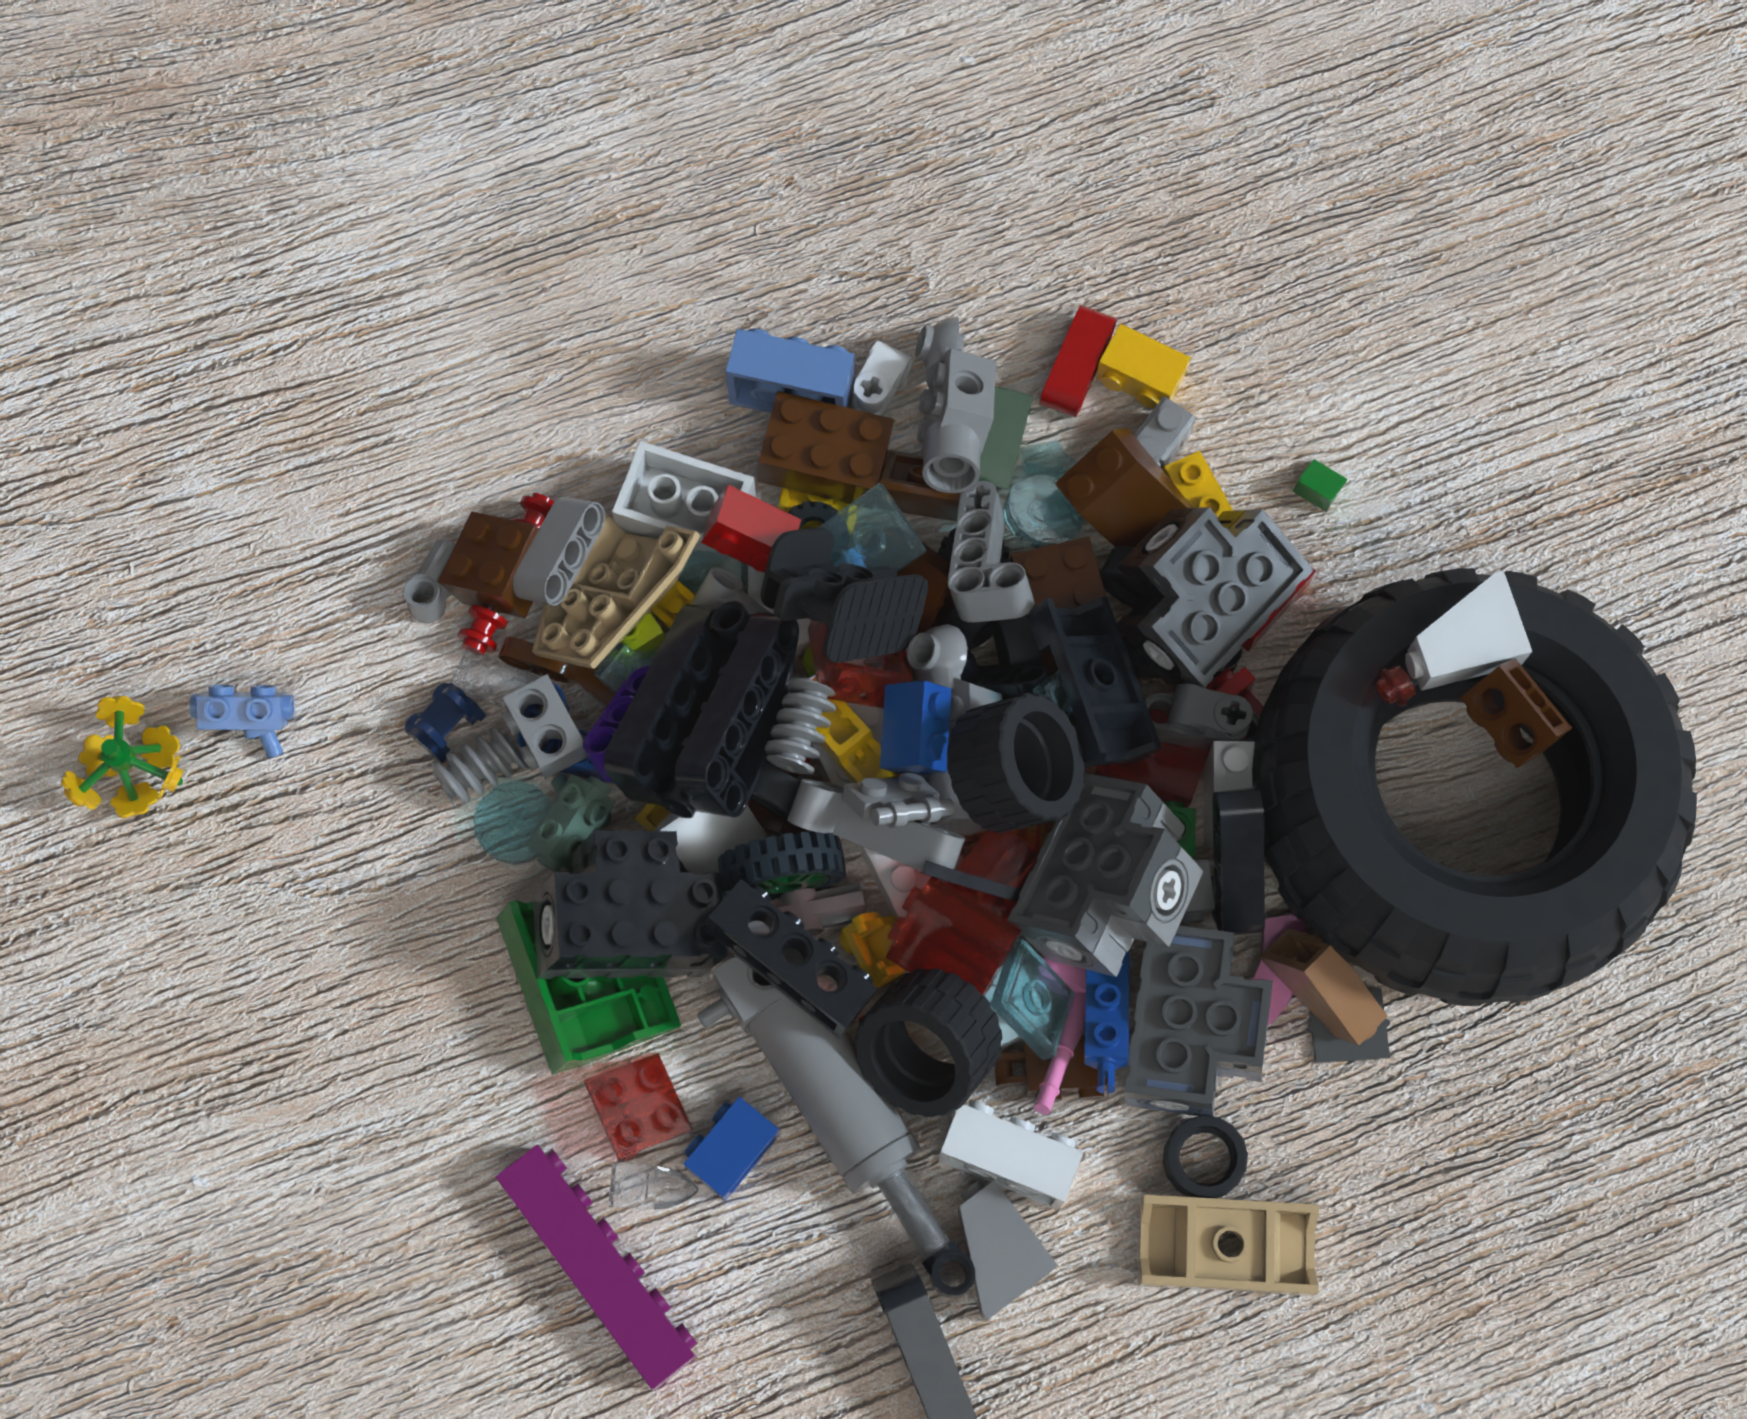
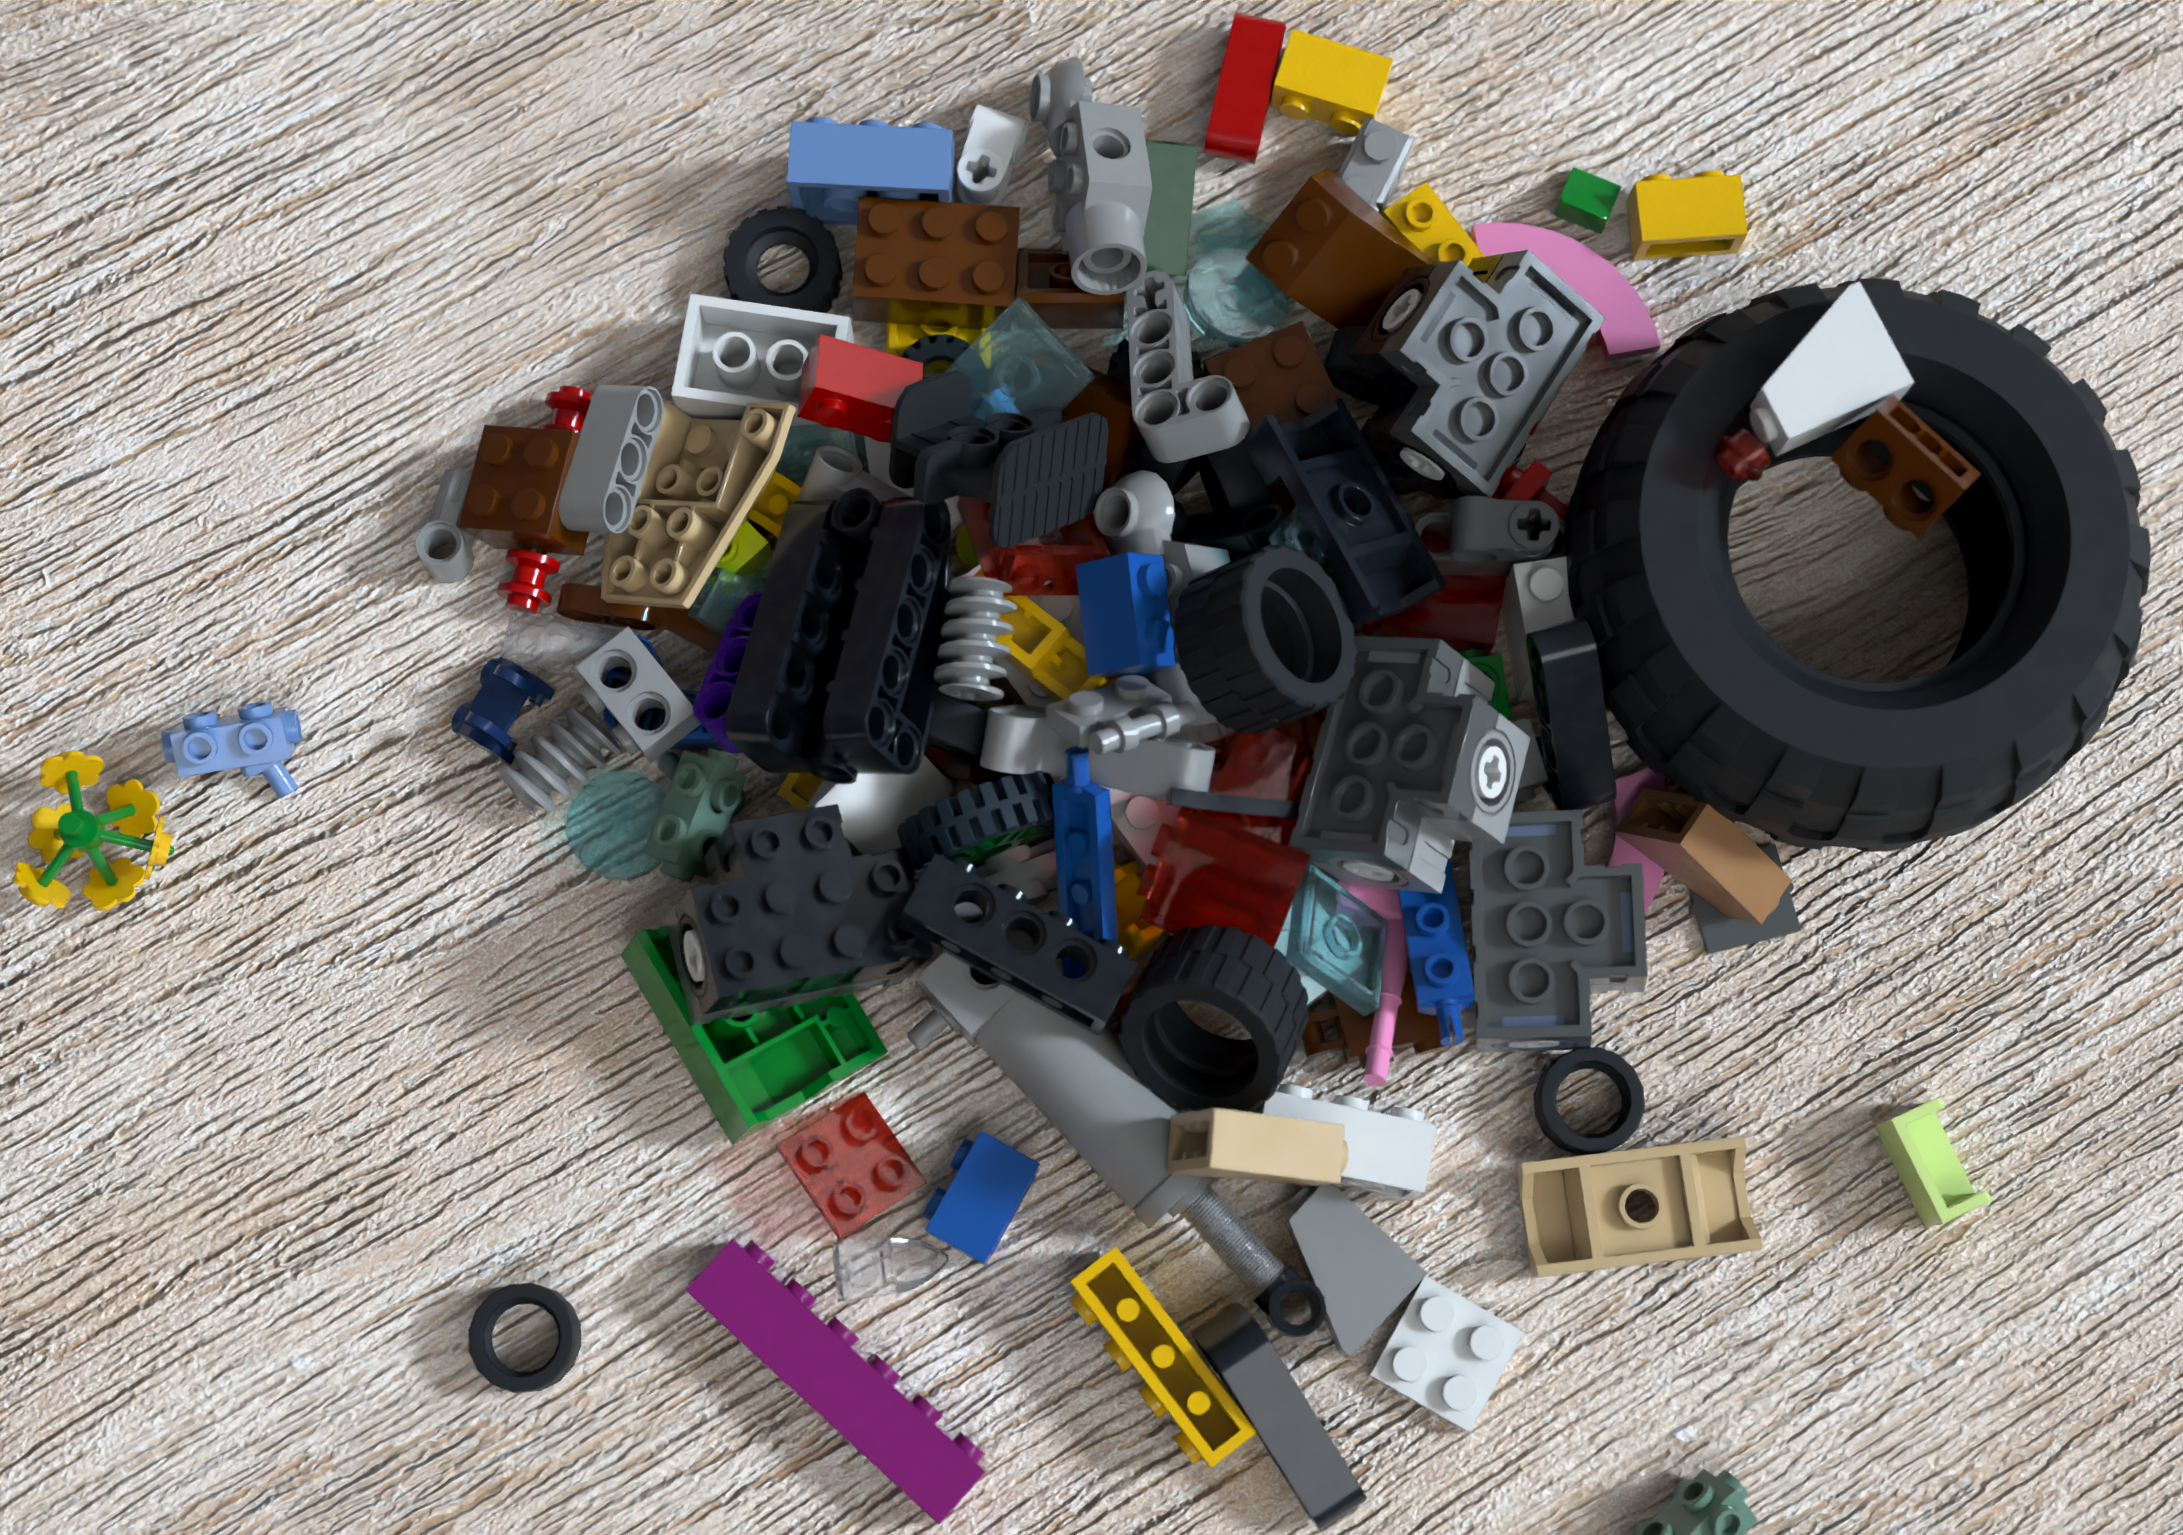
camera: 10 degrees left, 5 degrees up
(341, 1174) = (492, 1309): none -> black tyre
(721, 406) = (790, 228): none -> black tyre
(845, 1294) = (1163, 1358): none -> yellow brick
(854, 900) = (1084, 854): none -> blue plate
(942, 1143) = (1256, 1147): none -> tan slope
(1062, 1332) = (1446, 1354): none -> white plate
(1333, 579) = (1627, 325): none -> bright pink tile
(1392, 508) = (1686, 216): none -> yellow piece
(1458, 1252) = (1929, 1165): none -> yellowish green panel

